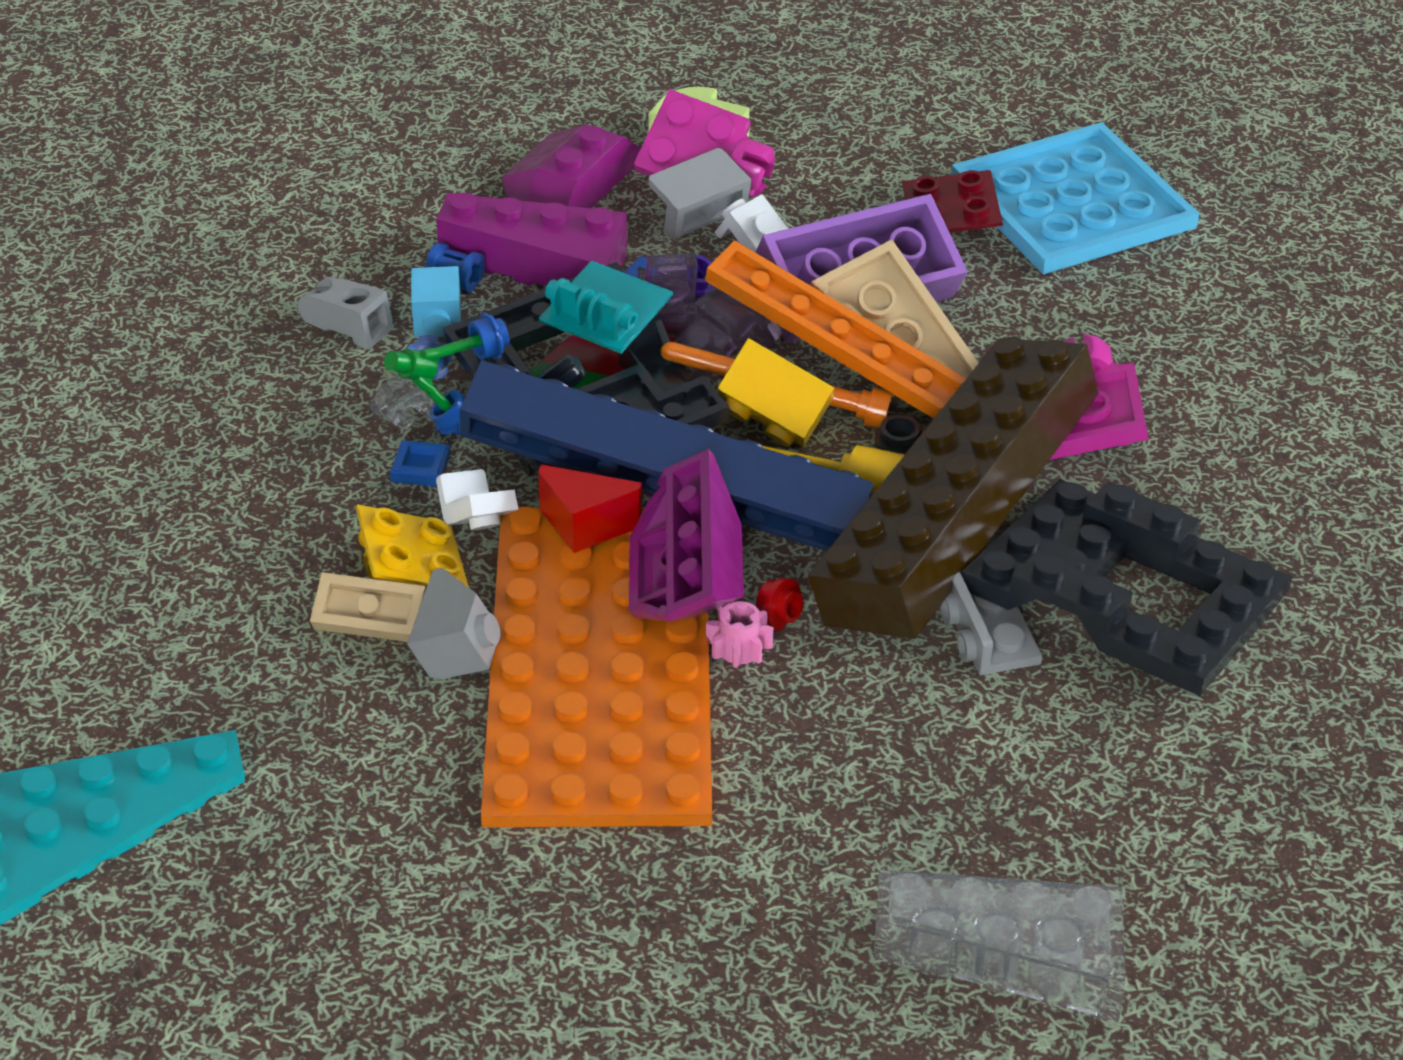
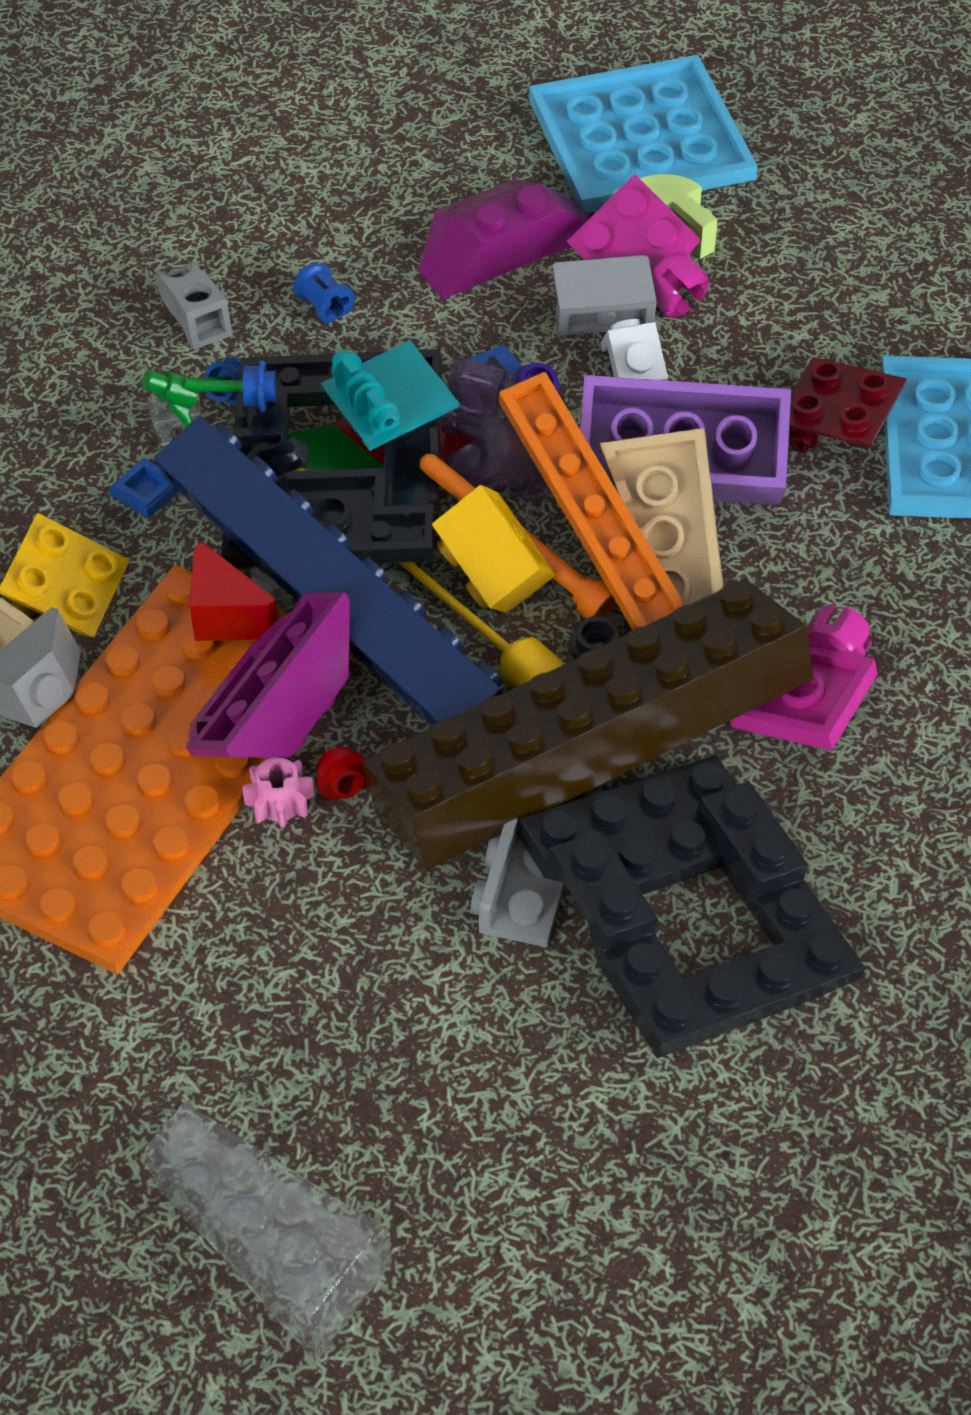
camera: 30 degrees right, 10 degrees up
(435, 299) = (276, 322): medium azure brick -> none
(467, 499) = (147, 546): white bracket -> none
(532, 238) = (413, 292): magenta wedge -> none
(617, 70) = (642, 124): none -> medium azure plate

